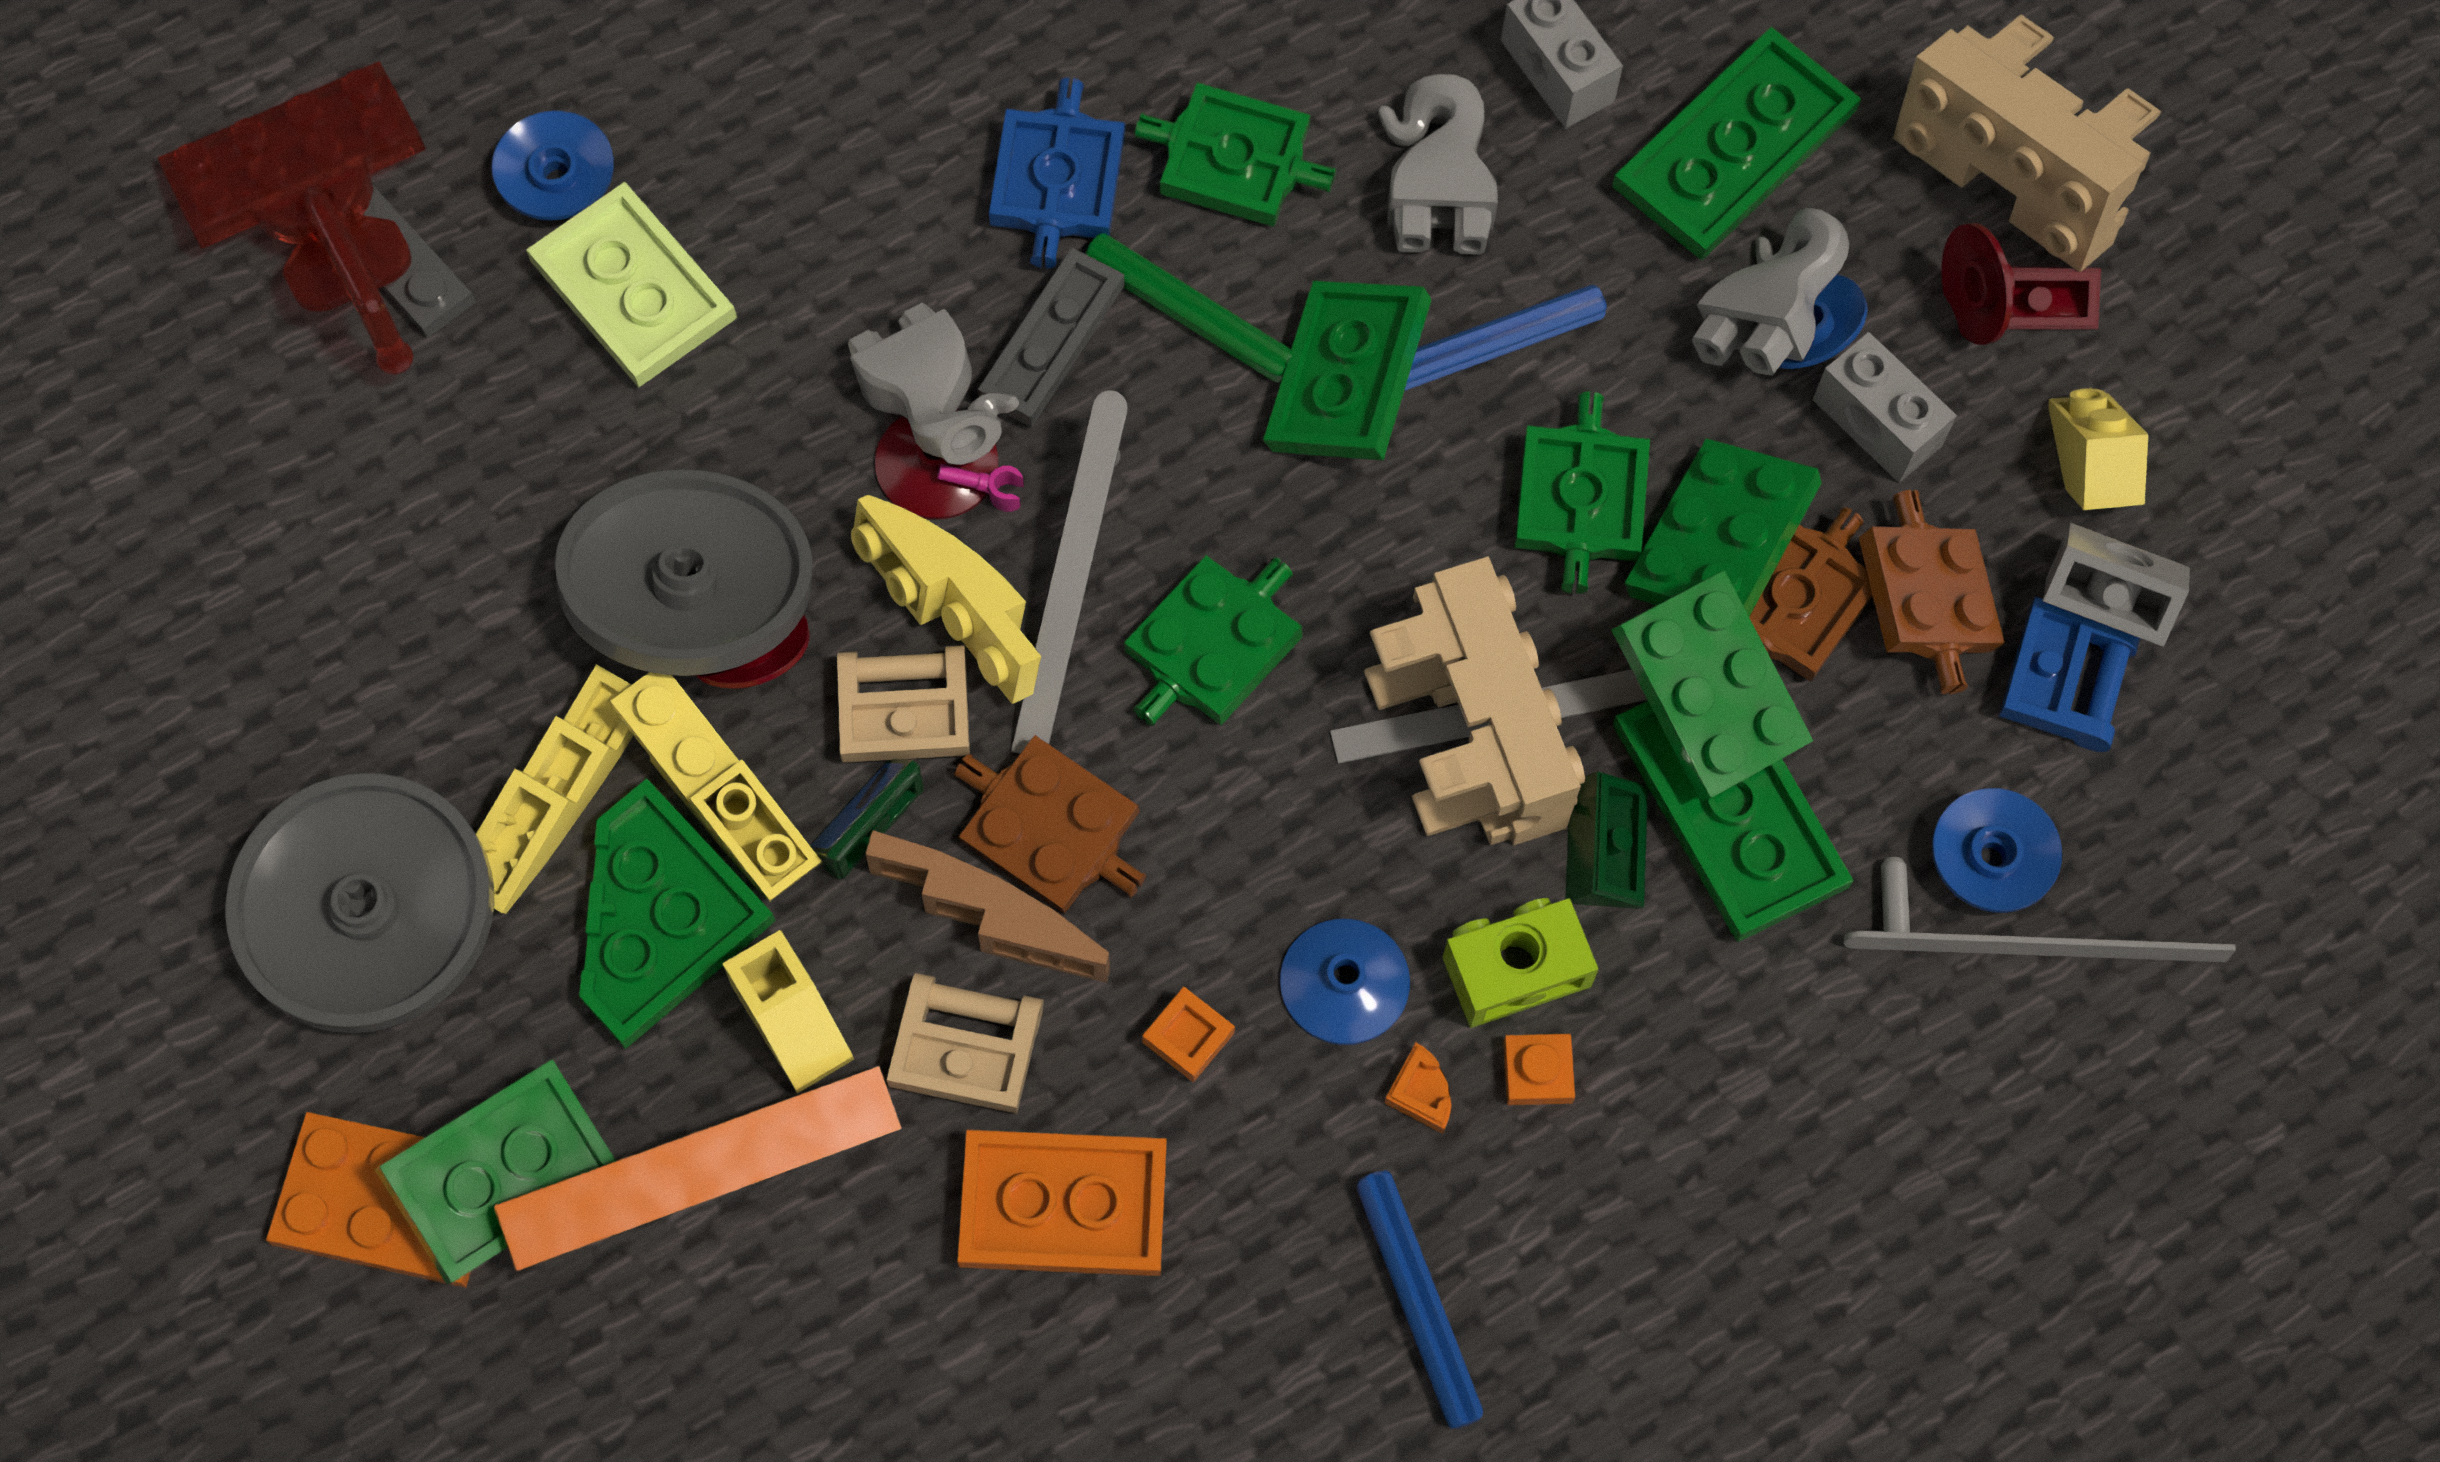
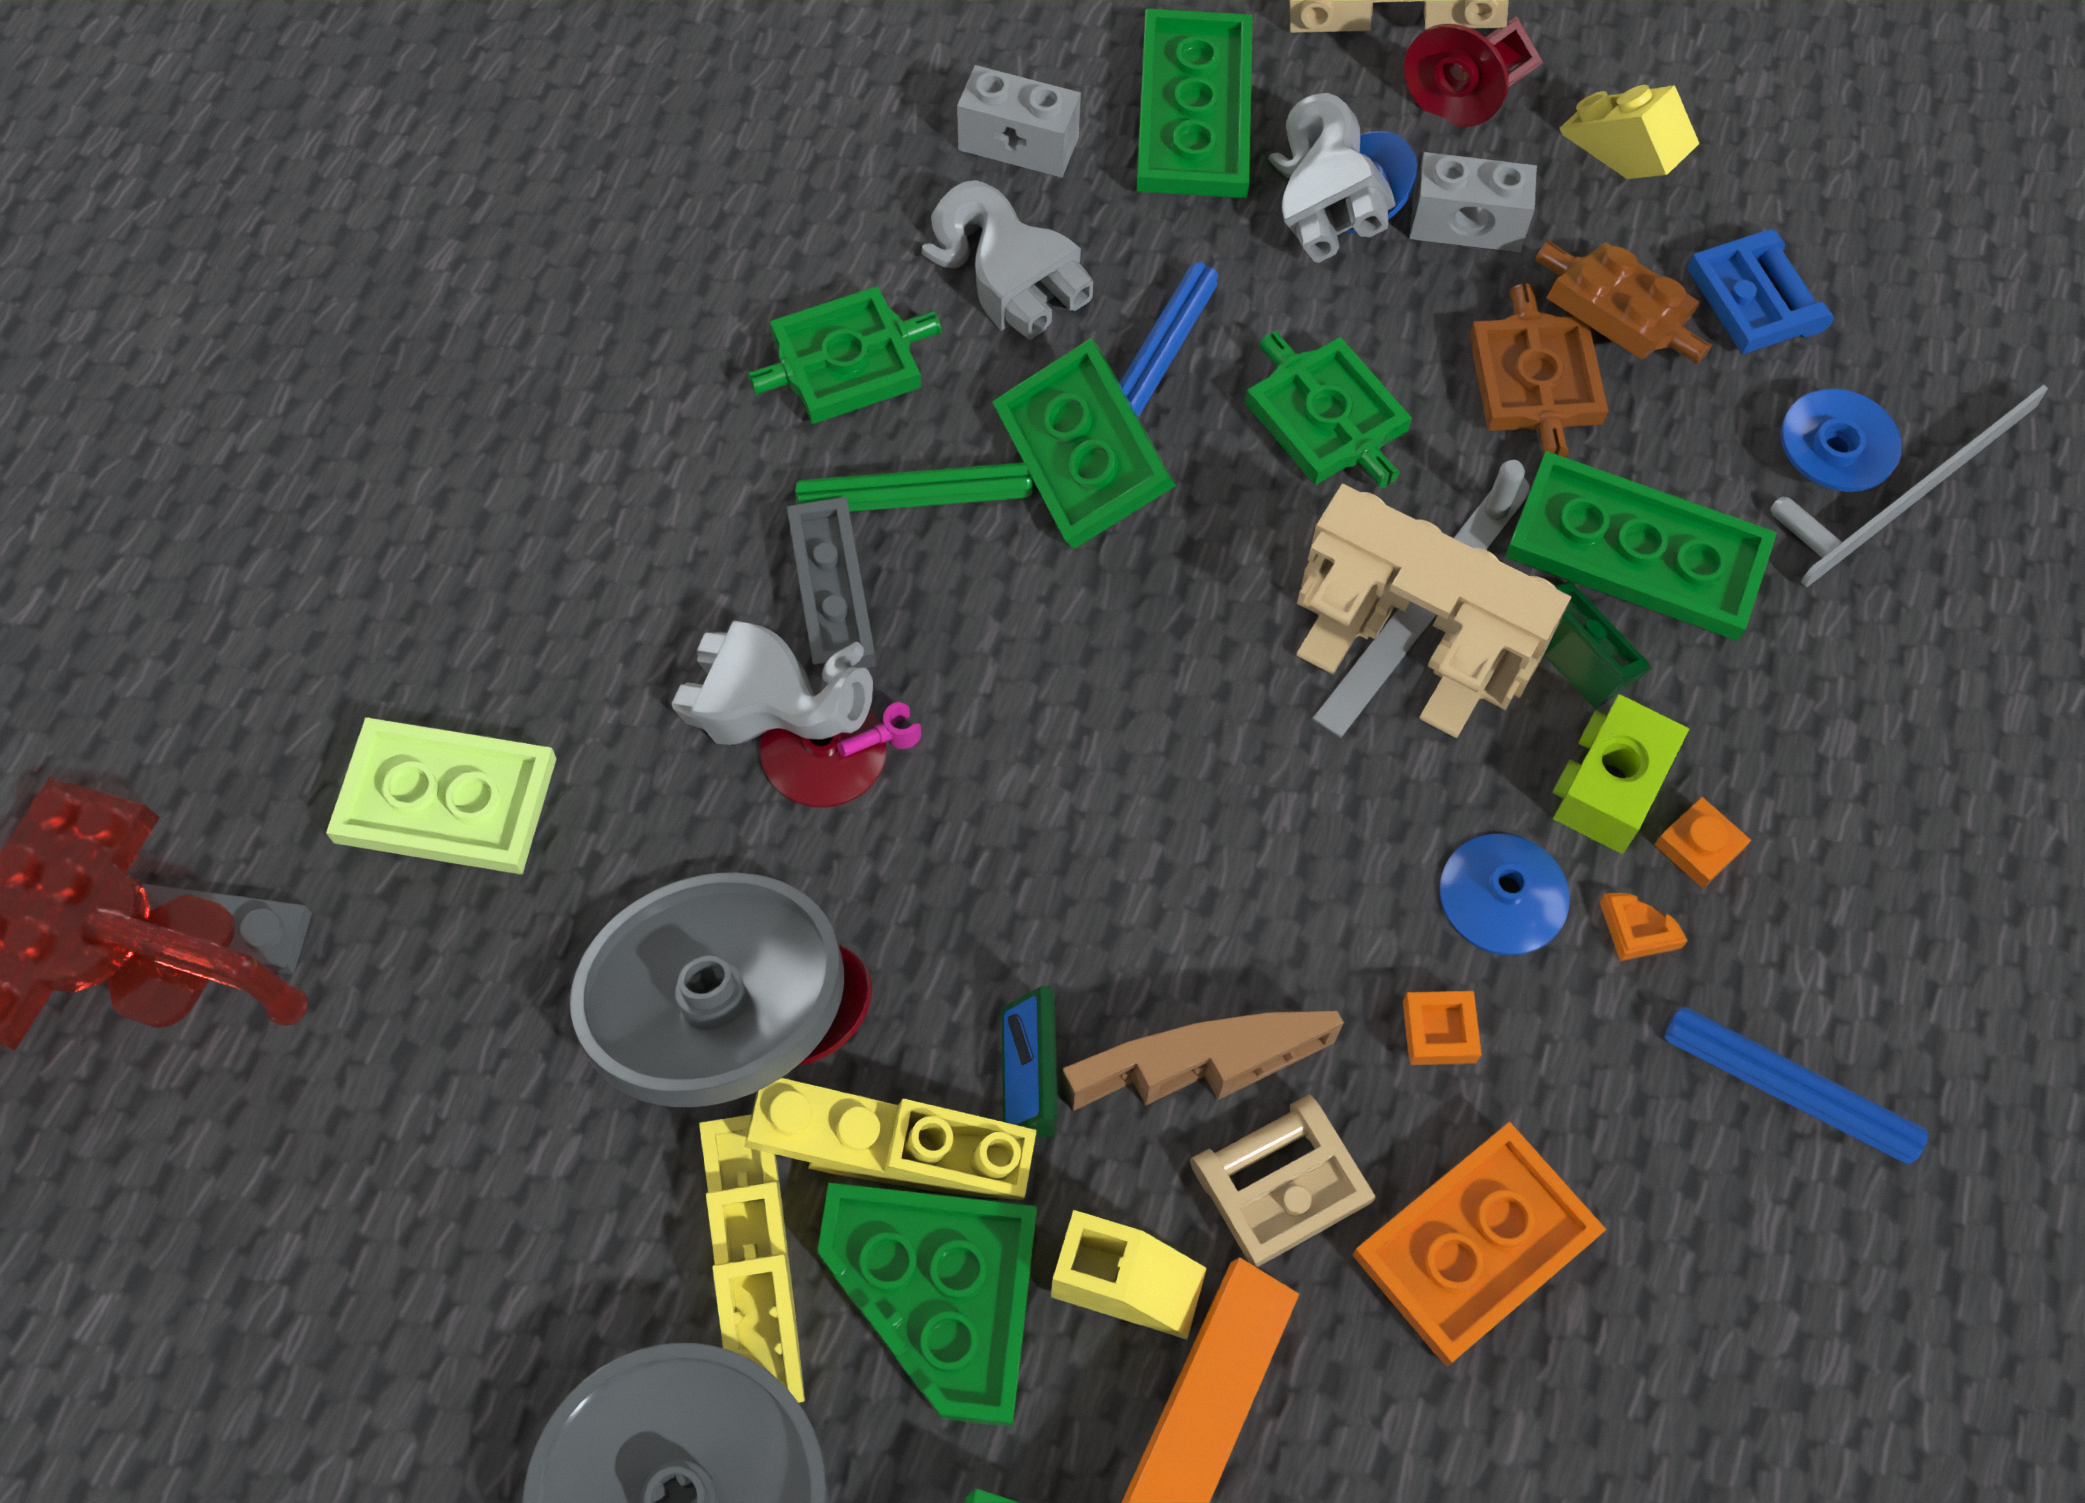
camera: 40 degrees left, 5 degrees down
(548, 144) = (274, 730): blue dish -> none
(904, 721) = (992, 967): tan plate -> none
(946, 578) = (921, 826): light yellow slope -> none
(1050, 824) = (1180, 954): dark orange plate -> none
(1057, 173) = (720, 463): blue plate -> none
(1073, 566) = (969, 641): light grey piece -> none
(1213, 640) = (1167, 718): green plate -> none
(1712, 685) = (1568, 464): green plate -> none
(1727, 515) = (1455, 364): green plate -> none
(2117, 584) = (1738, 205): light grey brick -> none

